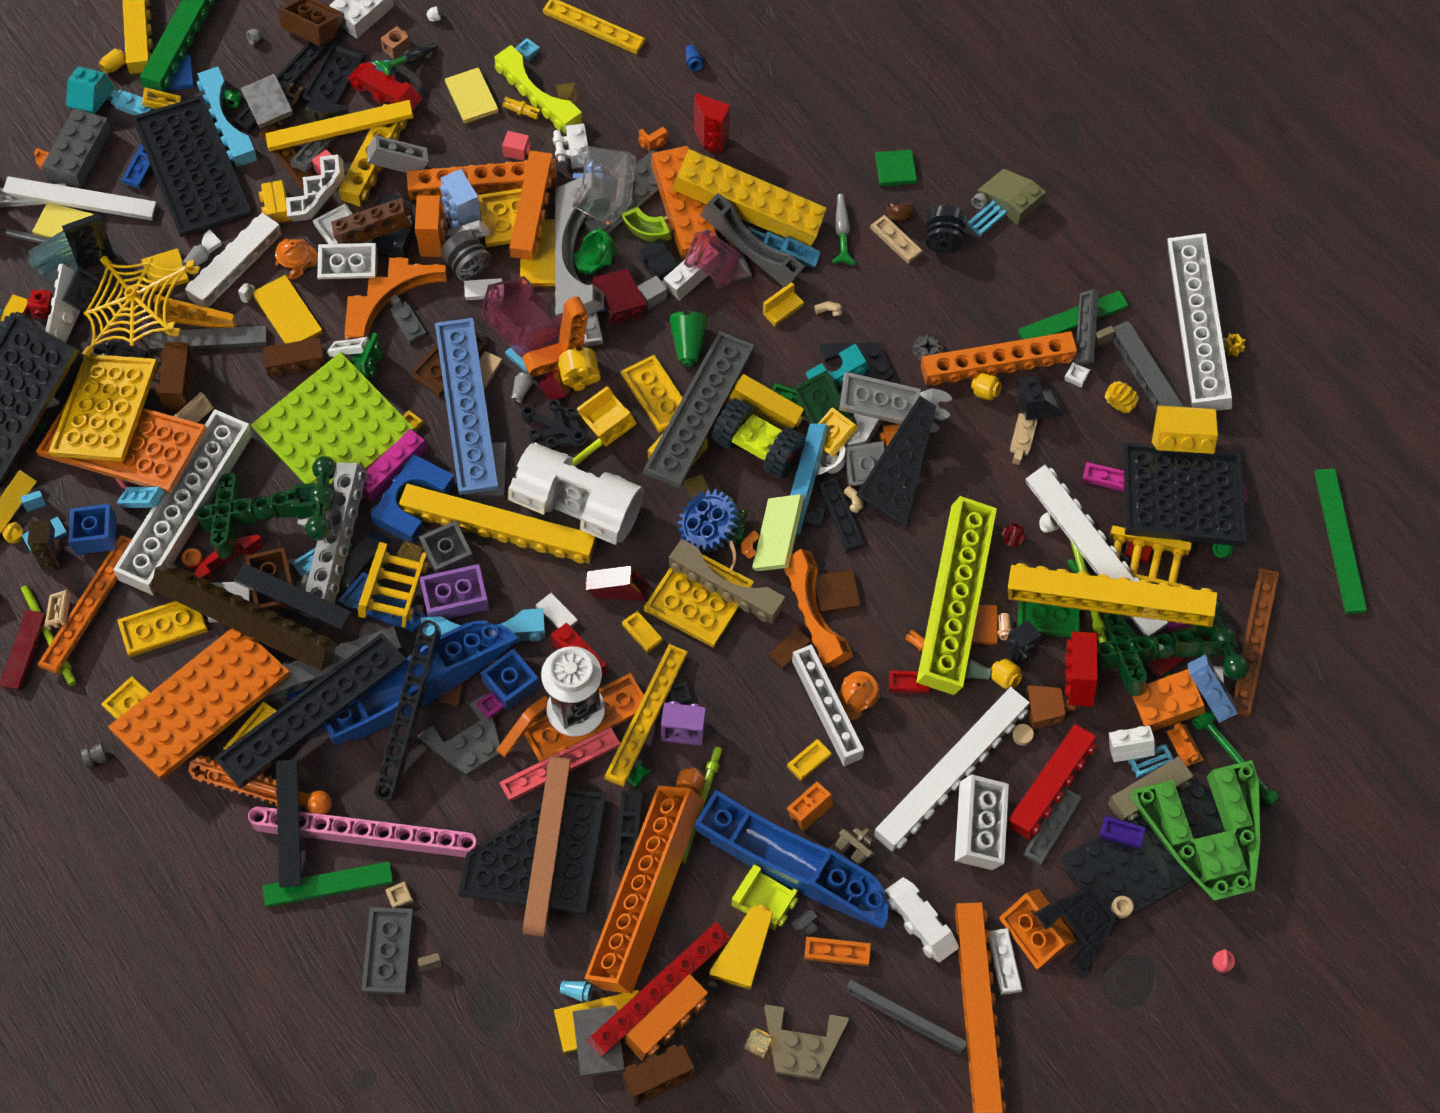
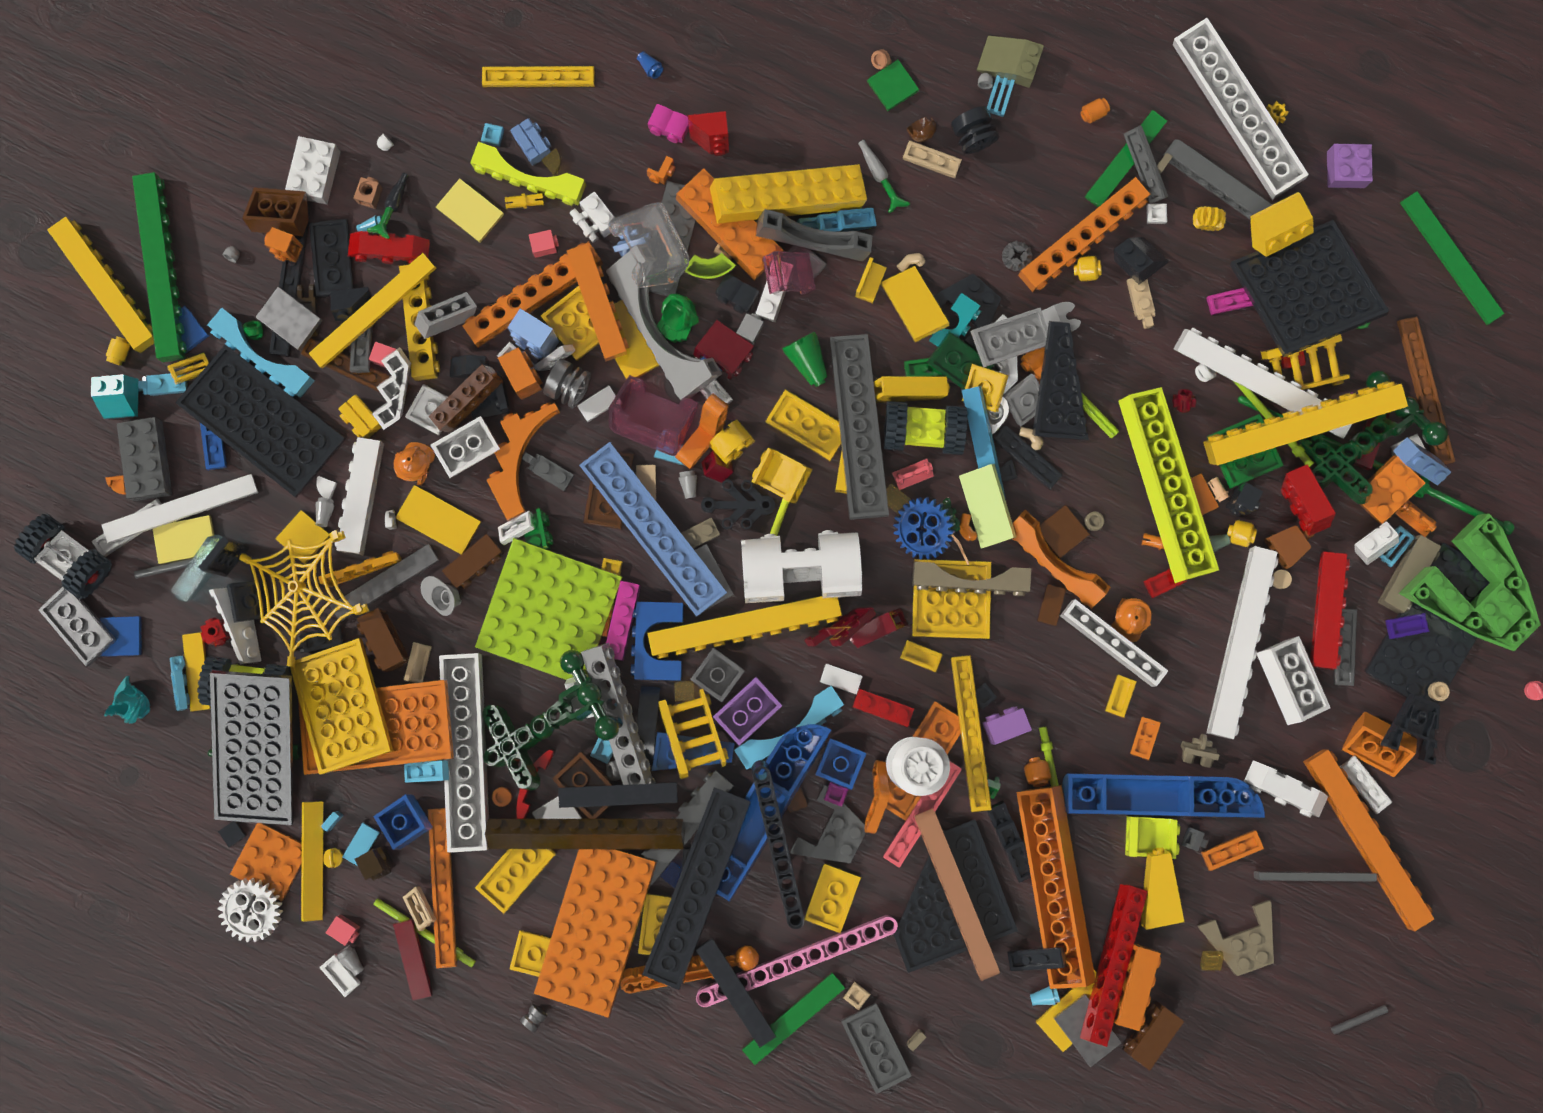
camera: 30 degrees left, 20 degrees up
(248, 367) = (440, 595): none -> light grey piece
(299, 43) = (283, 245): none -> orange brick
(430, 795) = (832, 898): none -> yellow plate
(507, 433) = (701, 533): none -> dark tan plate
(555, 66) = (530, 141): none -> medium blue brick
(581, 562) = (844, 627): none -> dark red wing
(588, 945) = (1037, 959): none -> black tile
(680, 106) = (668, 123): none -> dark pink brick
(727, 477) = (913, 474): none -> coral hinge
(810, 339) = (915, 304): none -> yellow tile
(871, 598) = (1094, 521): none -> dark tan tile
(896, 142) = (880, 59): none -> nougat tile
(925, 510) = (1098, 417): none -> lime axle
(1066, 266) = (1095, 110): none -> orange brick
(1279, 416) = (1349, 166): none -> medium lavender brick

